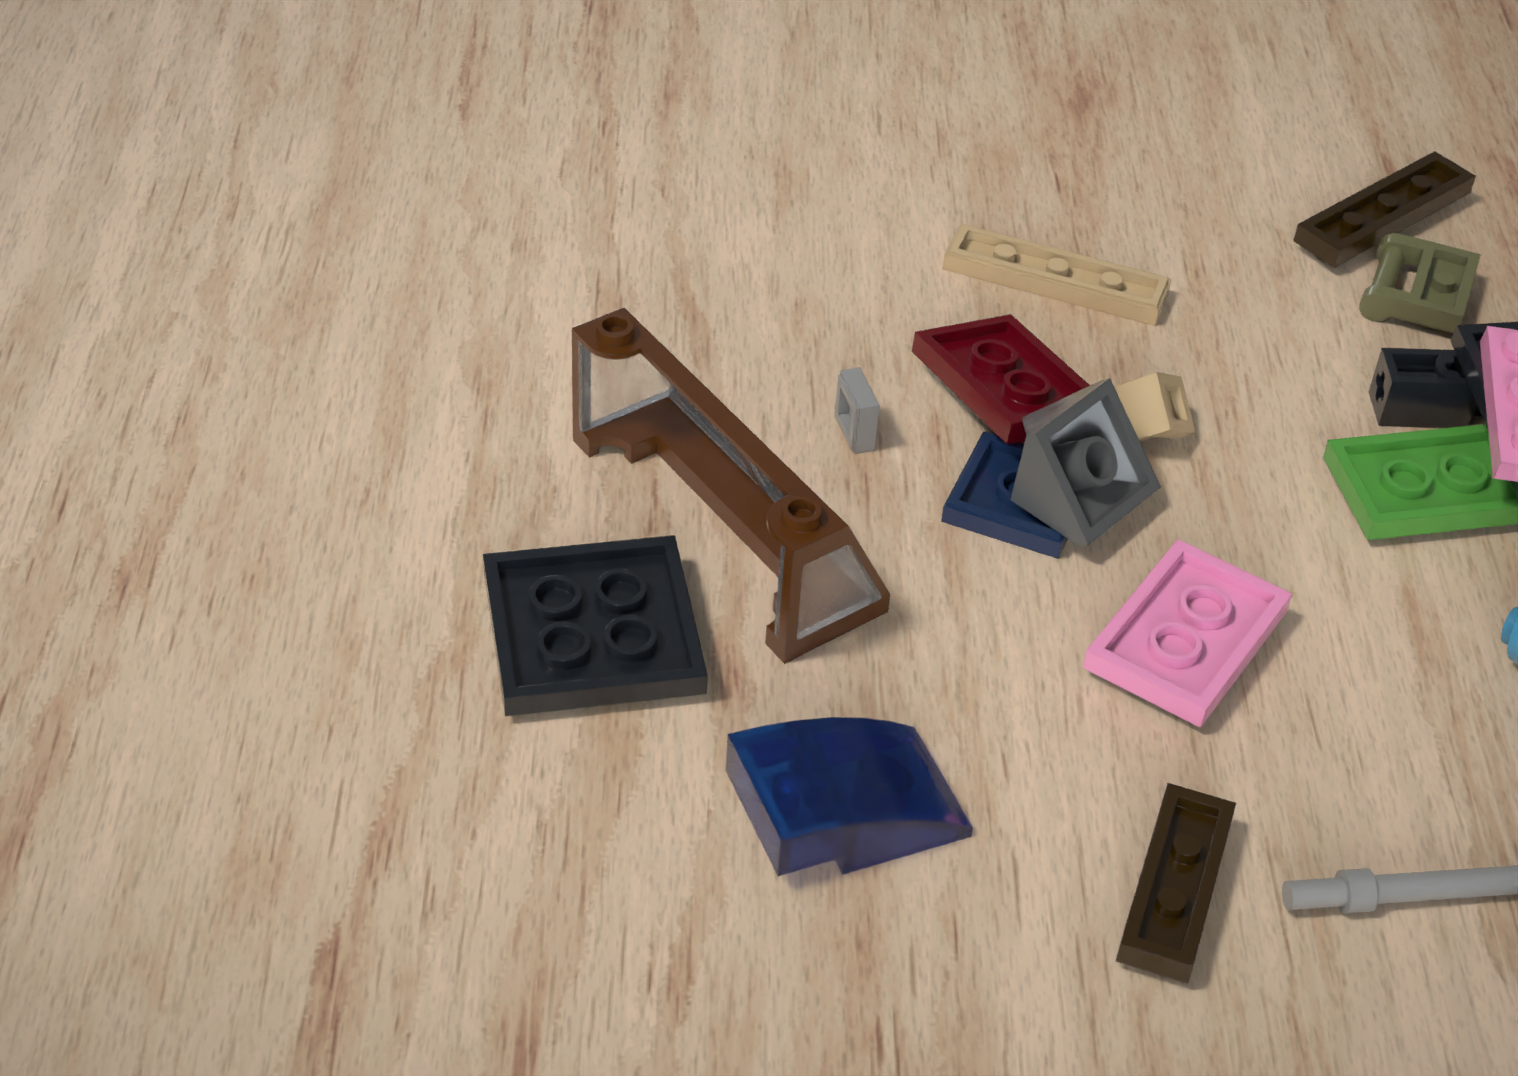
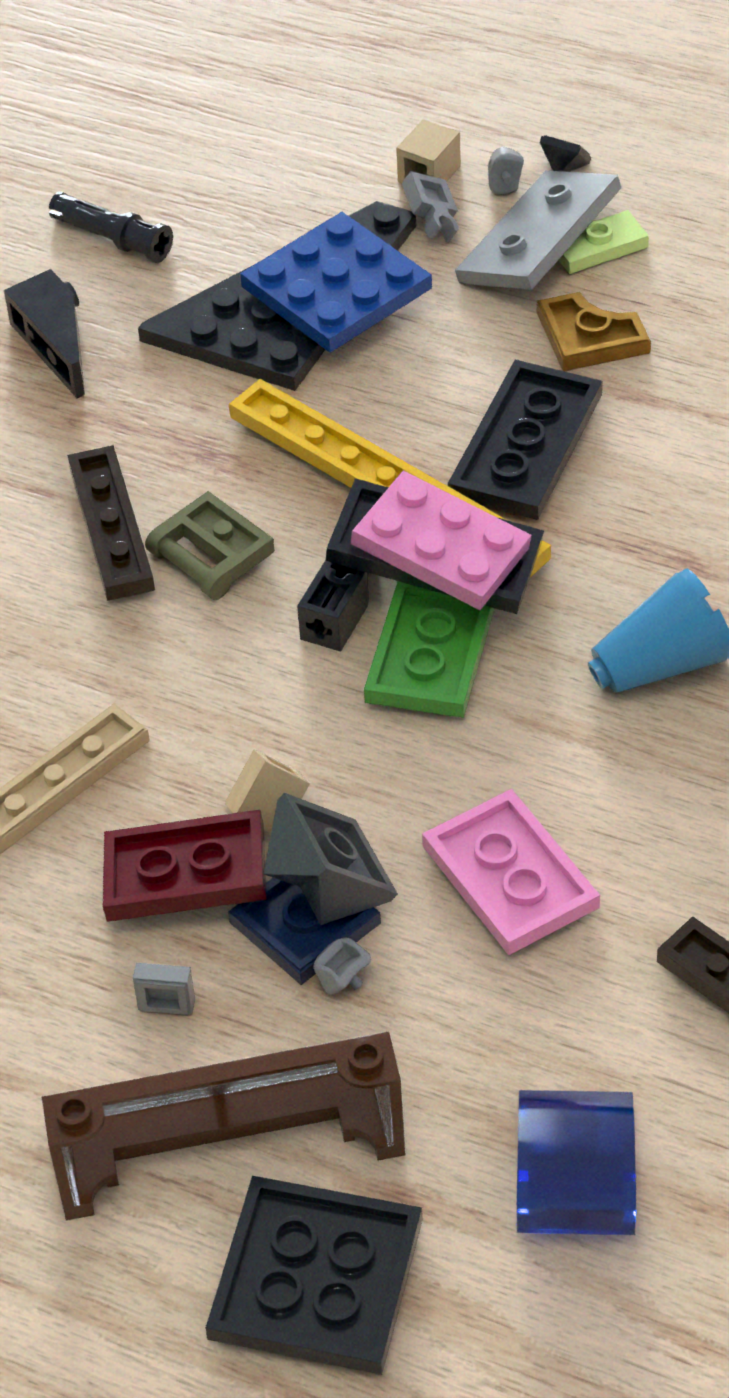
camera: 60 degrees left, 5 degrees up
(973, 530) = (339, 964): none -> light grey piece

